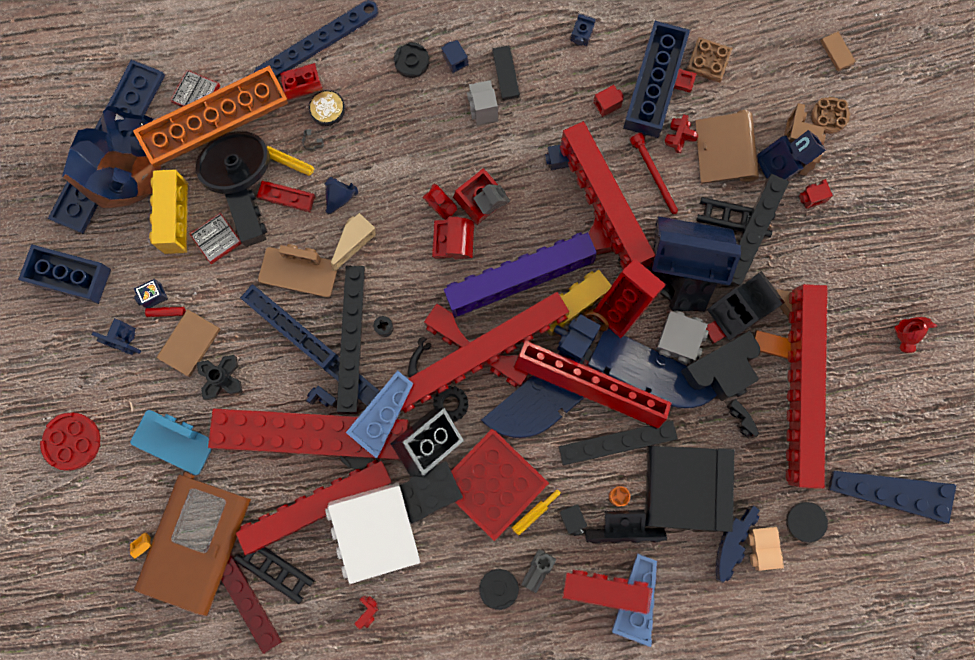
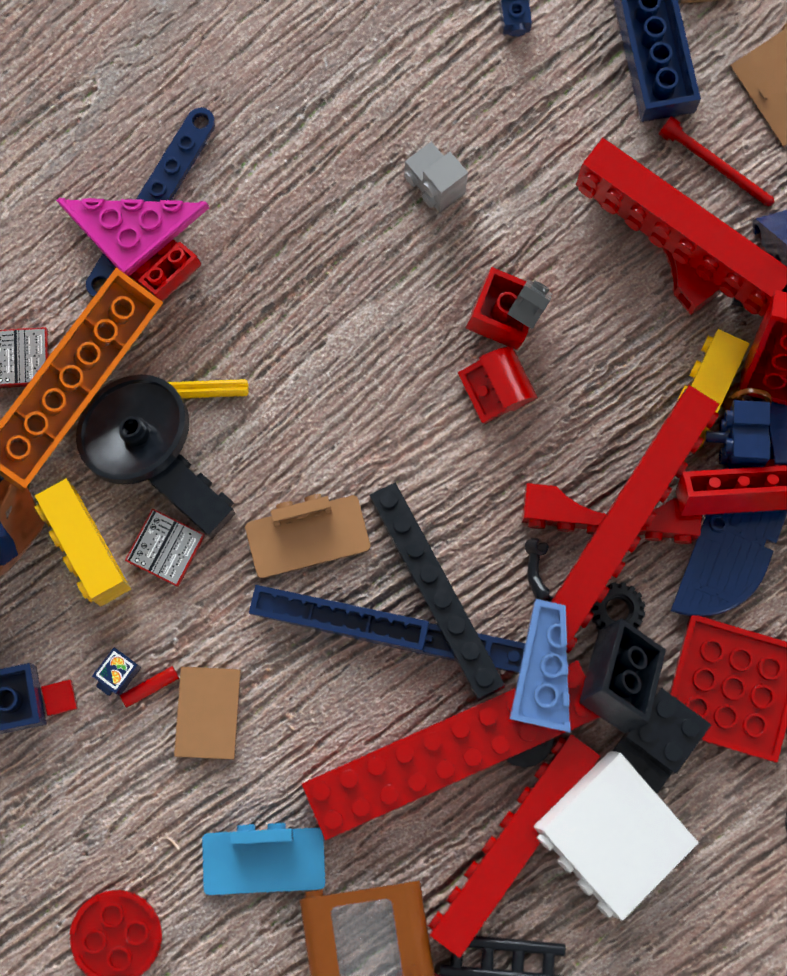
camera: 35 degrees left, 0 degrees up
(113, 292) = (59, 697): none -> red tile
(119, 337) = (110, 751): dark blue bracket -> none
(223, 371) = (263, 736): black plant -> none
(285, 196) = (229, 440): red tile -> none
(295, 50) = (130, 228): none -> dark pink tile
(319, 140) = (233, 339): dark grey piece -> none
(326, 398) = (445, 690): dark blue bracket -> none
(327, 108) = (218, 288): tile -> none
(338, 194) = (305, 401): dark blue hat -> none
(354, 237) = (360, 448): tan slope -> none
(367, 617) = (665, 954): red bracket -> none
(378, 326) = (468, 542): black bush -> none
(411, 60) = (300, 165): black tile -> none
(437, 196) = (448, 337): red hips -> none
(454, 55) = (359, 130): dark blue brick -> none
(506, 72) = (440, 120): black tile -> none
(520, 274) = (618, 389): dark purple brick -> none
(555, 158) = (575, 206): dark blue brick -> none
(608, 100) = (602, 93): red brick -> none
(683, 133) = (728, 90): red hips -> none
(685, 80) = (692, 17): red plate -> none

